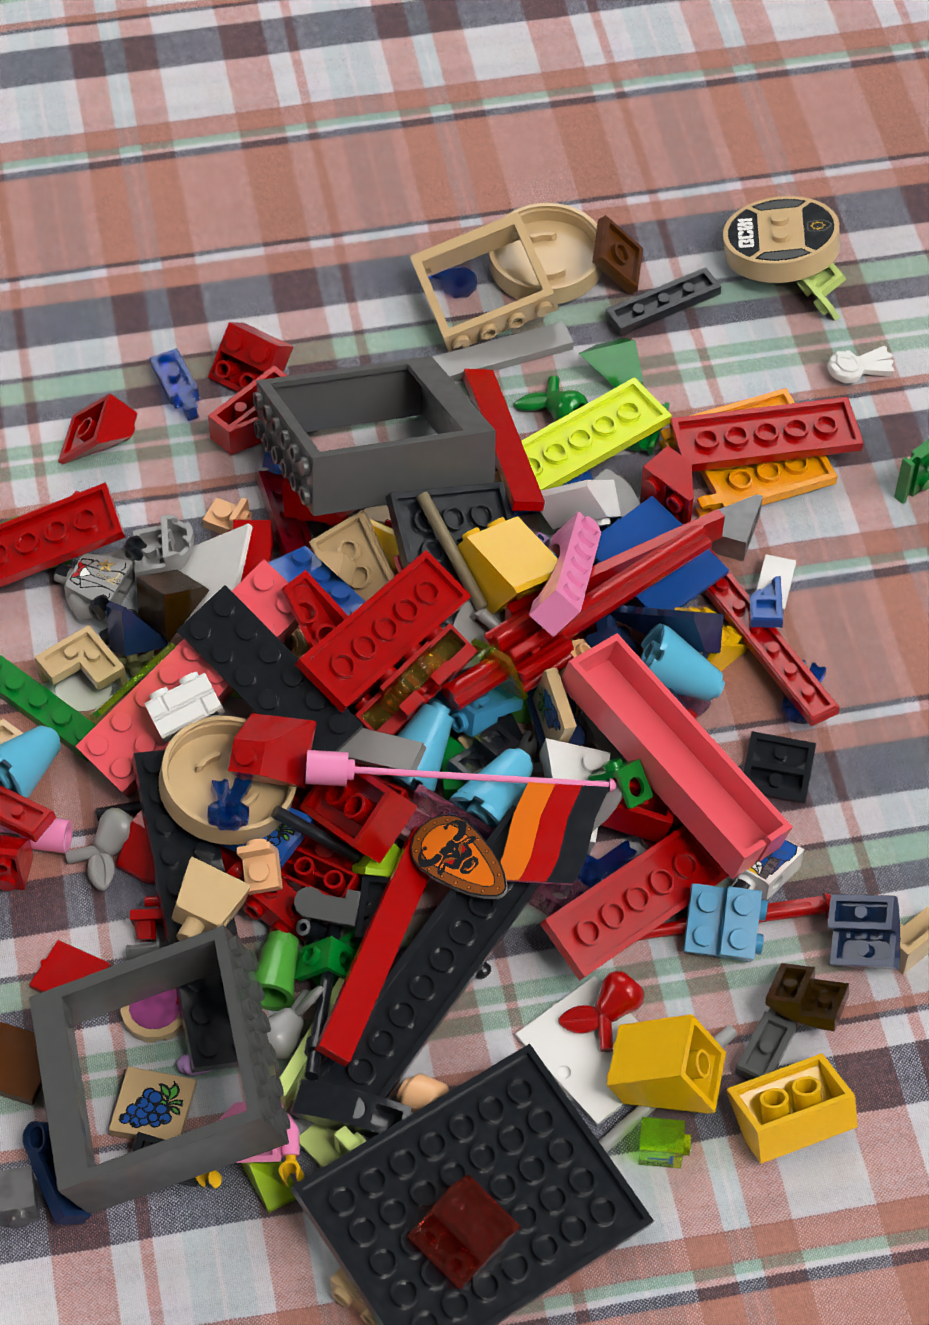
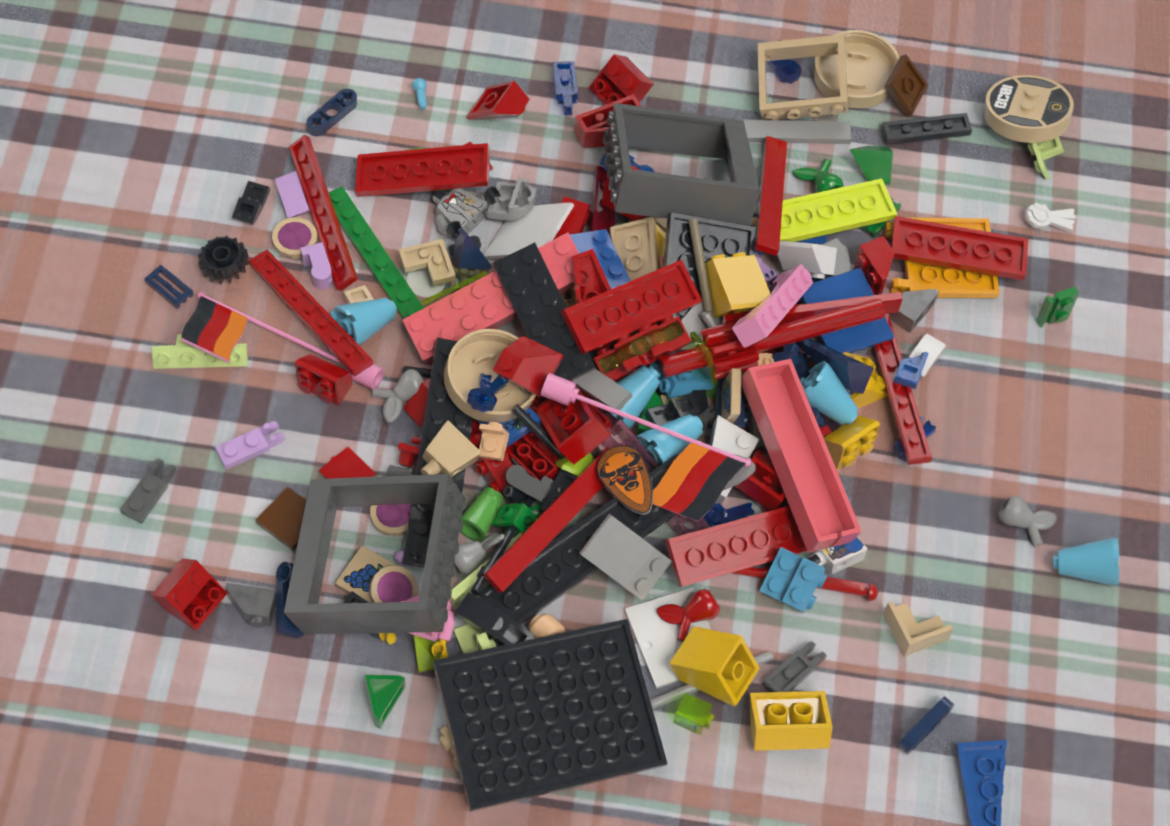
camera: 15 degrees right, 5 degrees up
(167, 600) = (501, 237): dark brown slope -> none
(183, 705) = (480, 315): white brick -> none
(191, 1105) = (392, 585): none -> flat silver tile
(221, 515) = (563, 187): light nougat bracket -> none
(231, 1260) = (383, 694): none -> green slope
(339, 563) = (622, 250): tan slope -> none
(463, 1231) = (535, 727): clear red slope -> none
(496, 962) = (625, 557): none -> light grey slope
(624, 773) = (759, 456): green bracket -> none
(731, 714) = (852, 441): none -> yellow slope
(780, 765) = (875, 485): black slope -> none
(807, 999) = (828, 649): dark brown slope -> none
(865, 931) = (886, 618): dark blue slope -> none

